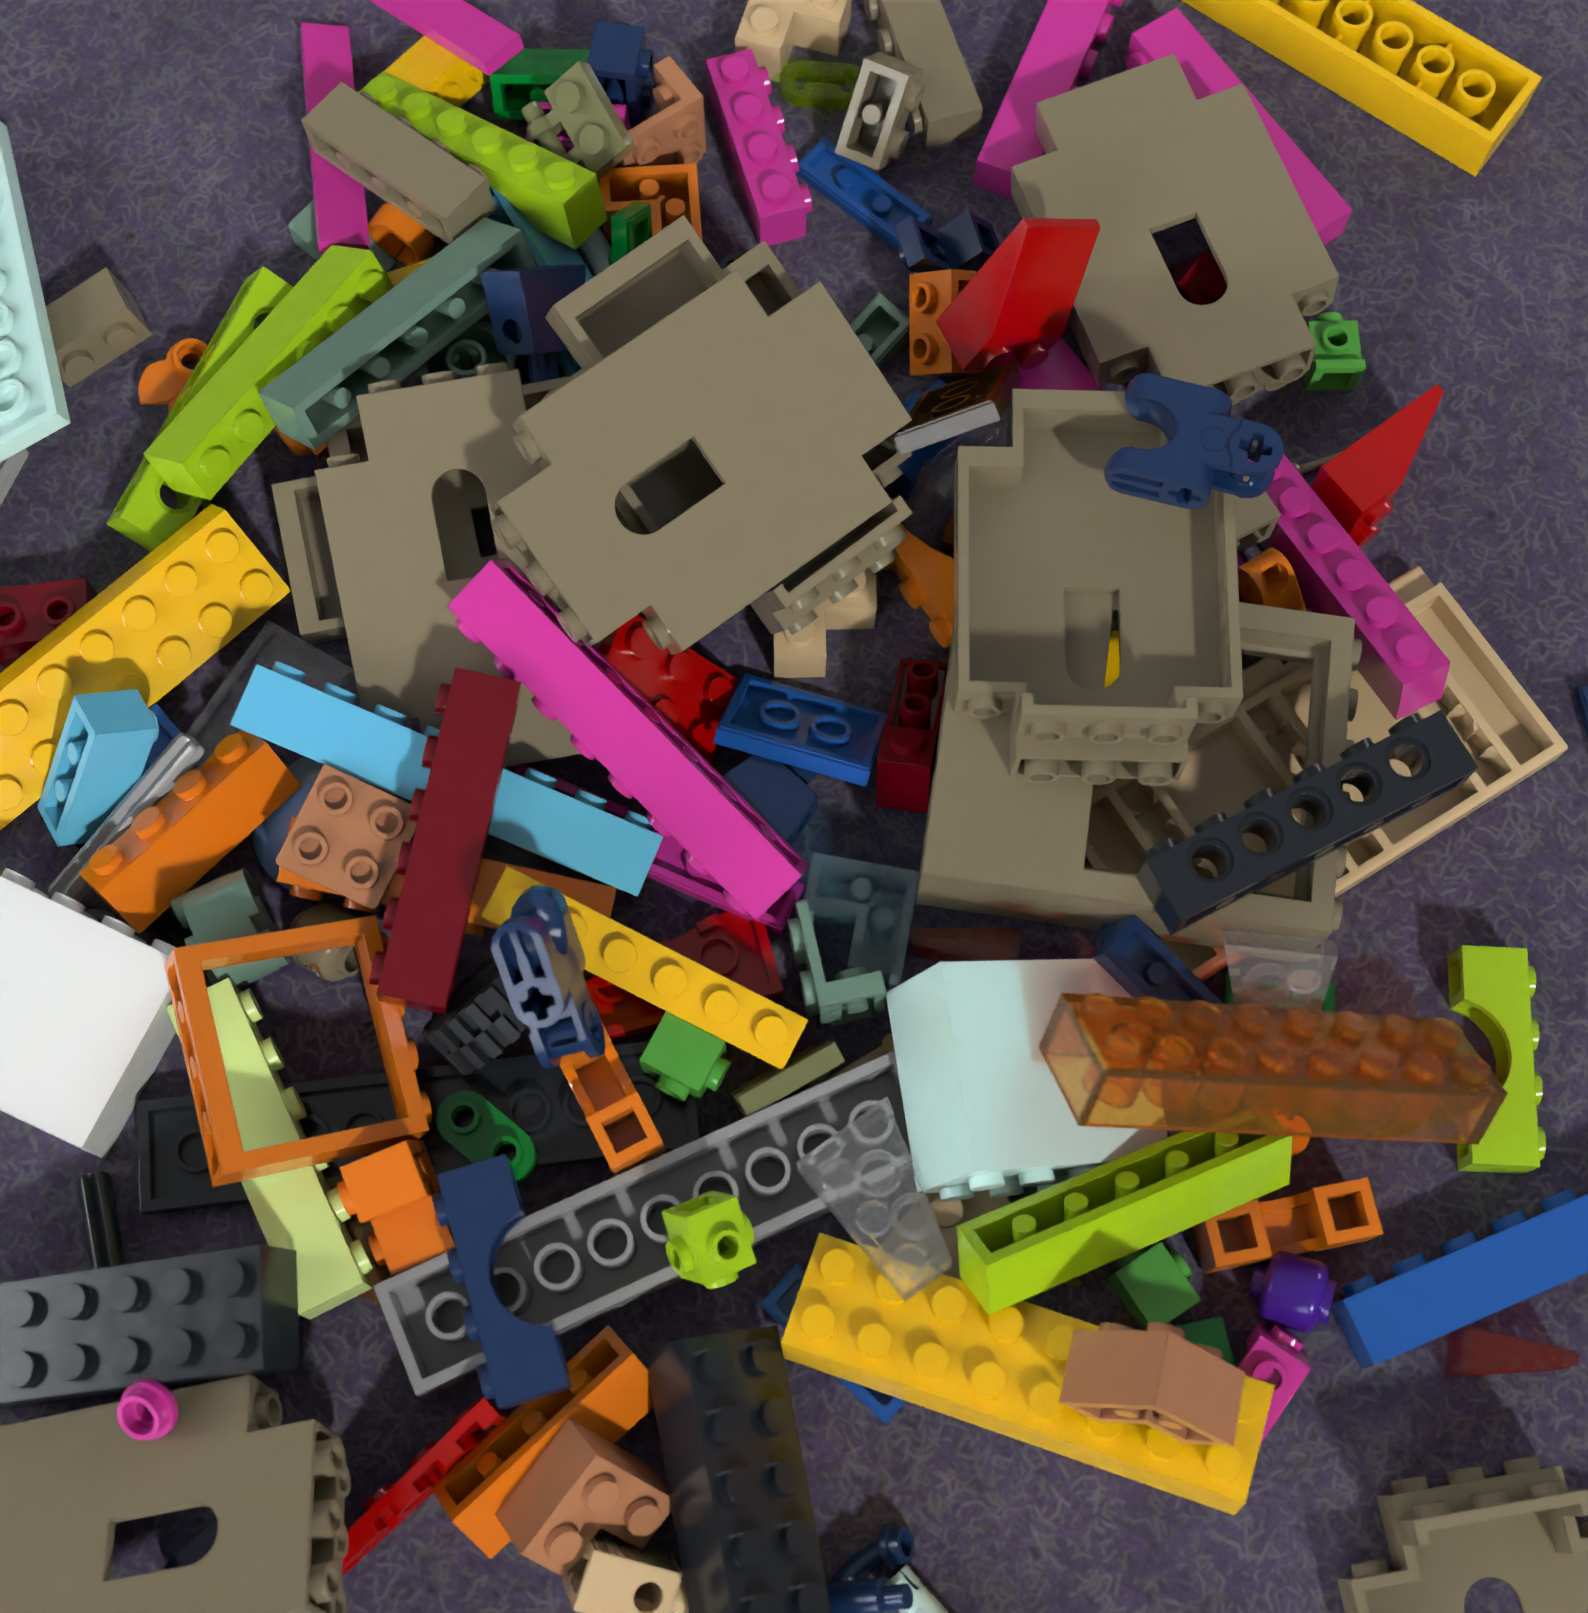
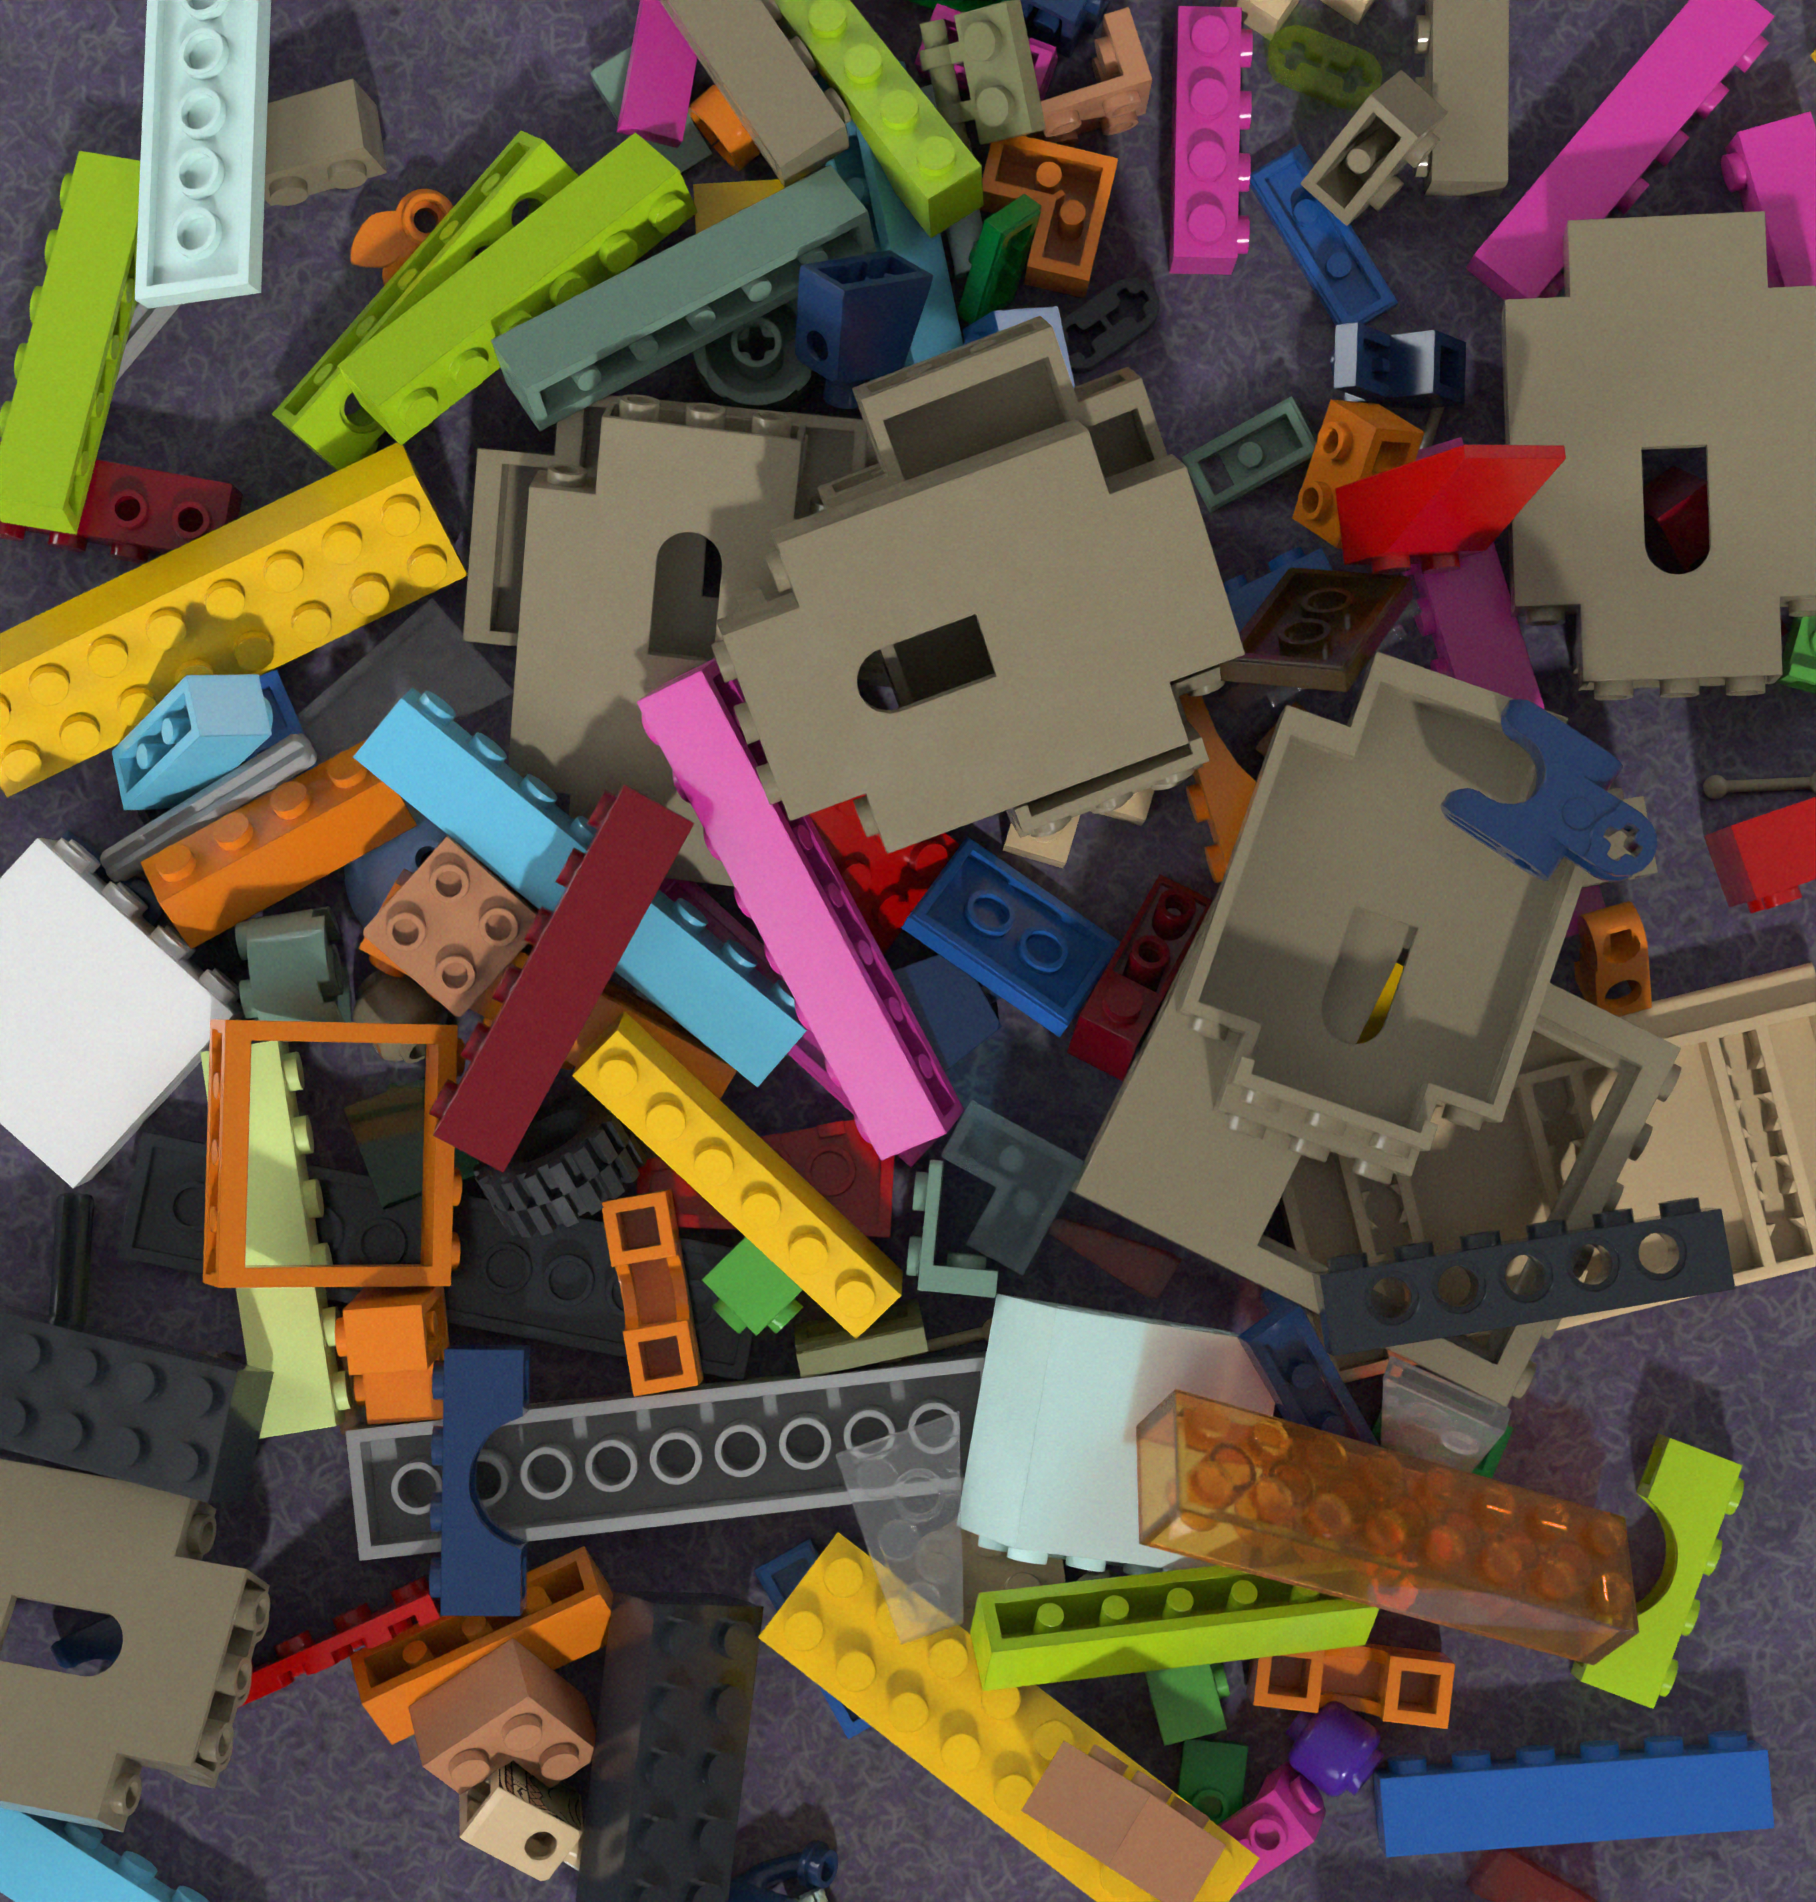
camera: 20 degrees right, 15 degrees up
(147, 1410) = (77, 1497): dark pink plate -> none
(350, 1043) = (392, 1142): none -> piece
(486, 1132) = (515, 1297): green plate -> none
(544, 977) = (621, 1175): dark blue piece -> none
(709, 1239) = (715, 1507): lime brick -> none
(1339, 580) = (1701, 968): dark pink brick -> none

